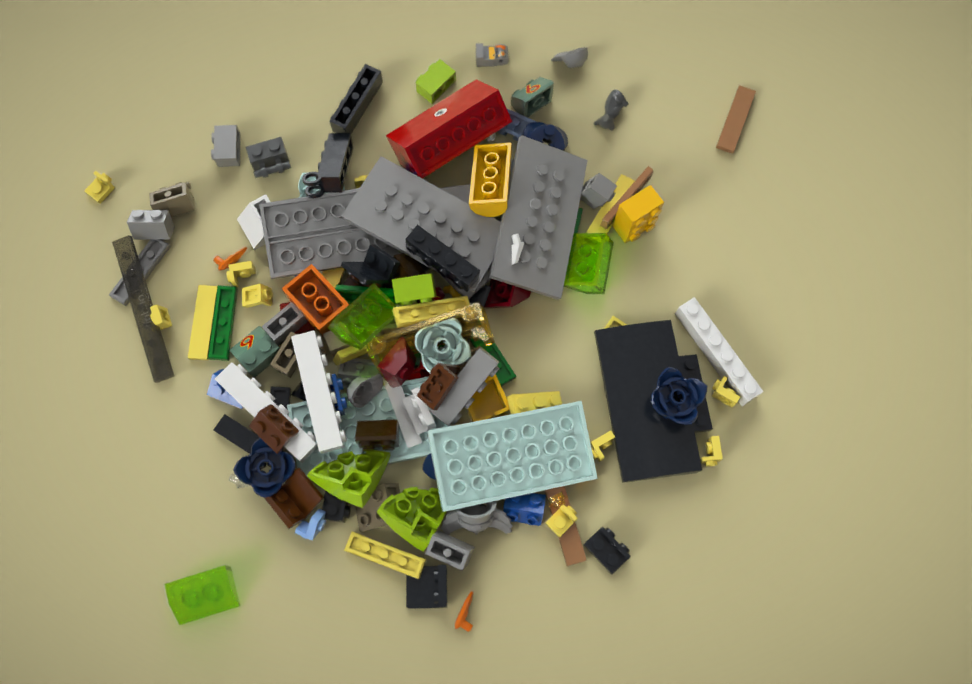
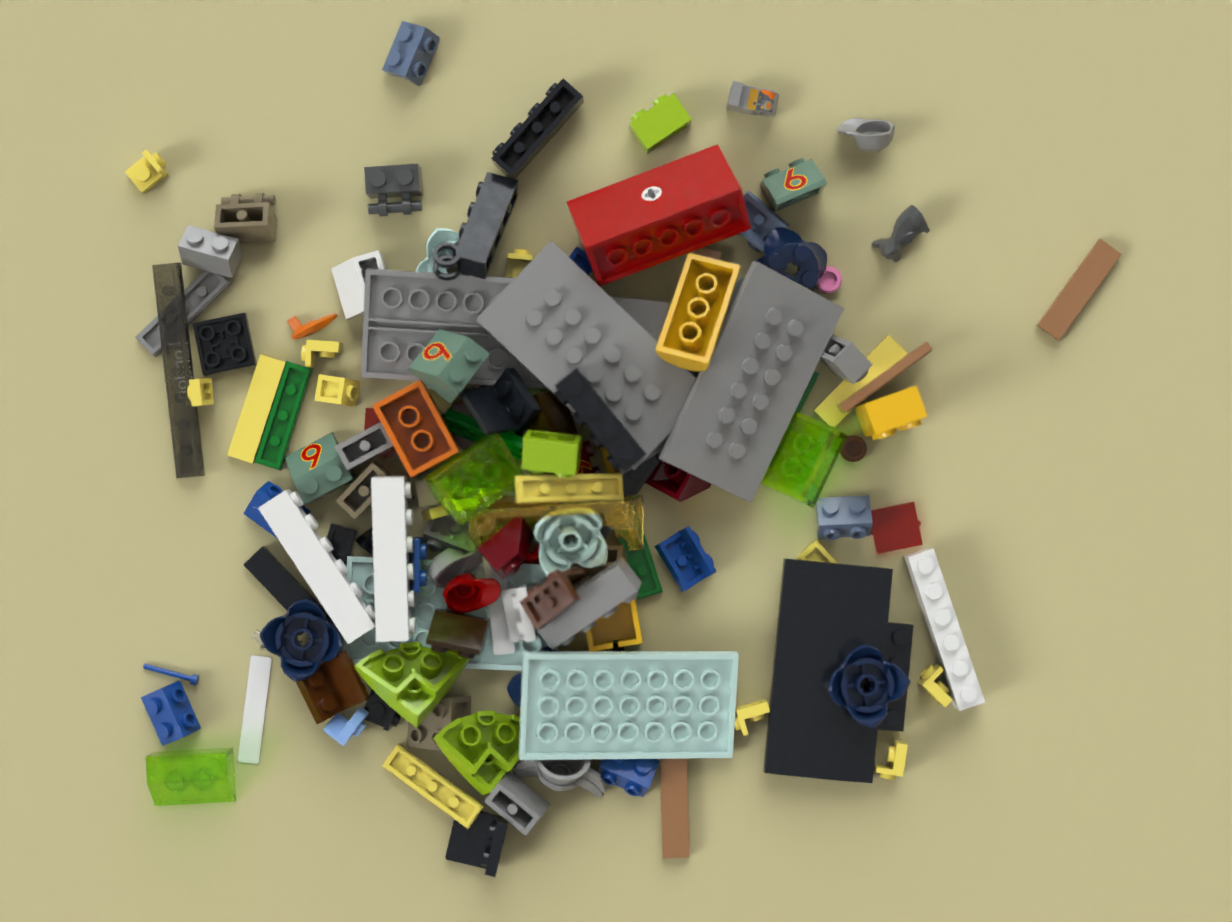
camera: 15 degrees right, 15 degrees up
(172, 285) = (224, 344): none -> black tile
(178, 550) = (171, 713): none -> blue bracket
(192, 522) = (193, 679): none -> blue piece
(226, 145) = (337, 152): light grey brick -> none
(241, 534) = (254, 709): none -> white sticker
(263, 77) = (411, 52): none -> sand blue bracket
(273, 428) = (323, 595): reddish brown bracket -> none
(330, 249) = (448, 363): none -> sand green slope
(380, 404) = (468, 593): none -> red piece
(460, 621) = (513, 885): orange bar -> none
(516, 248) = (706, 428): white bar -> none
(526, 348) = (685, 558): none -> blue bracket
(532, 401) = (676, 638): light yellow plate -> none
(557, 500) = (671, 775): clear yellow plate -> none
(562, 520) = (670, 800): light yellow bracket -> none
(573, 148) = (829, 281): none -> bright pink tile
(607, 549) = (718, 850): black bracket -> none
(620, 251) = (853, 449): none -> reddish brown tile
(627, 296) = (843, 517): none -> sand blue bracket
(663, 296) = (895, 528): none -> clear red piece

